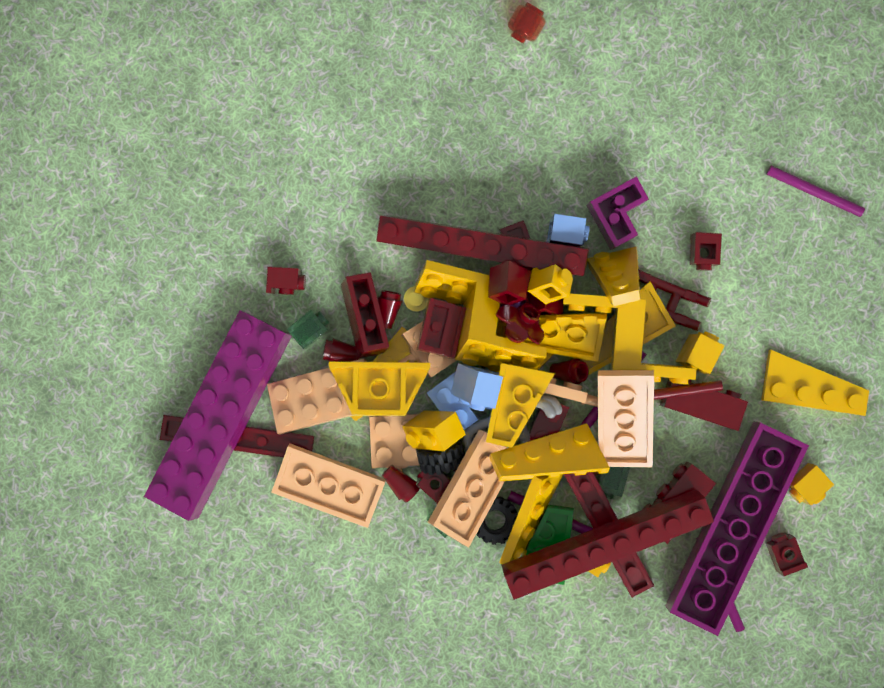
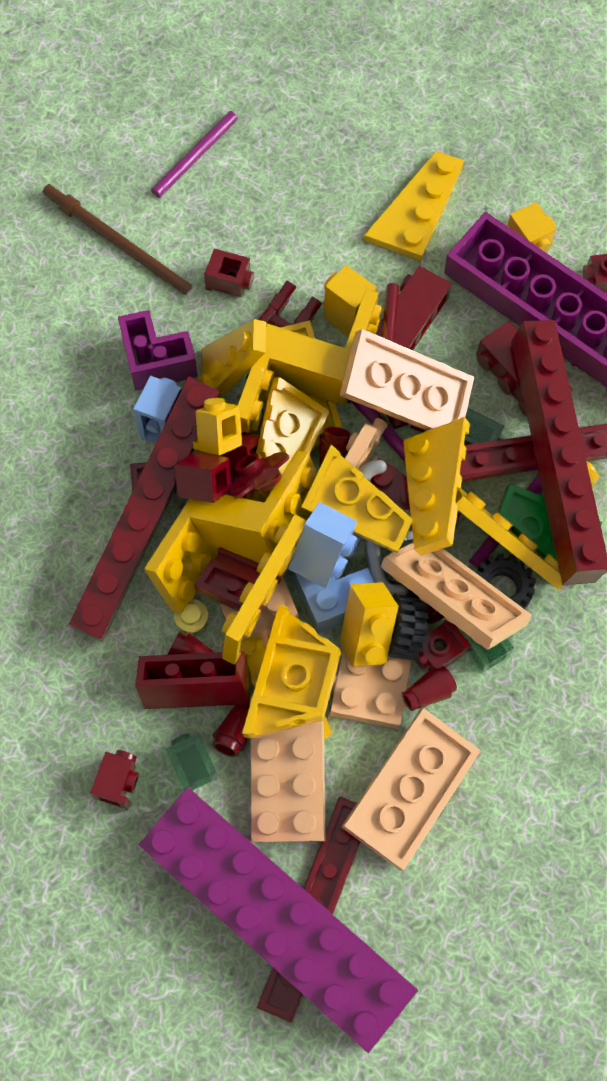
camera: 80 degrees left, 20 degrees down
(419, 348) = (261, 592): none -> yellow wing
(737, 105) = (71, 206): none -> reddish brown bar

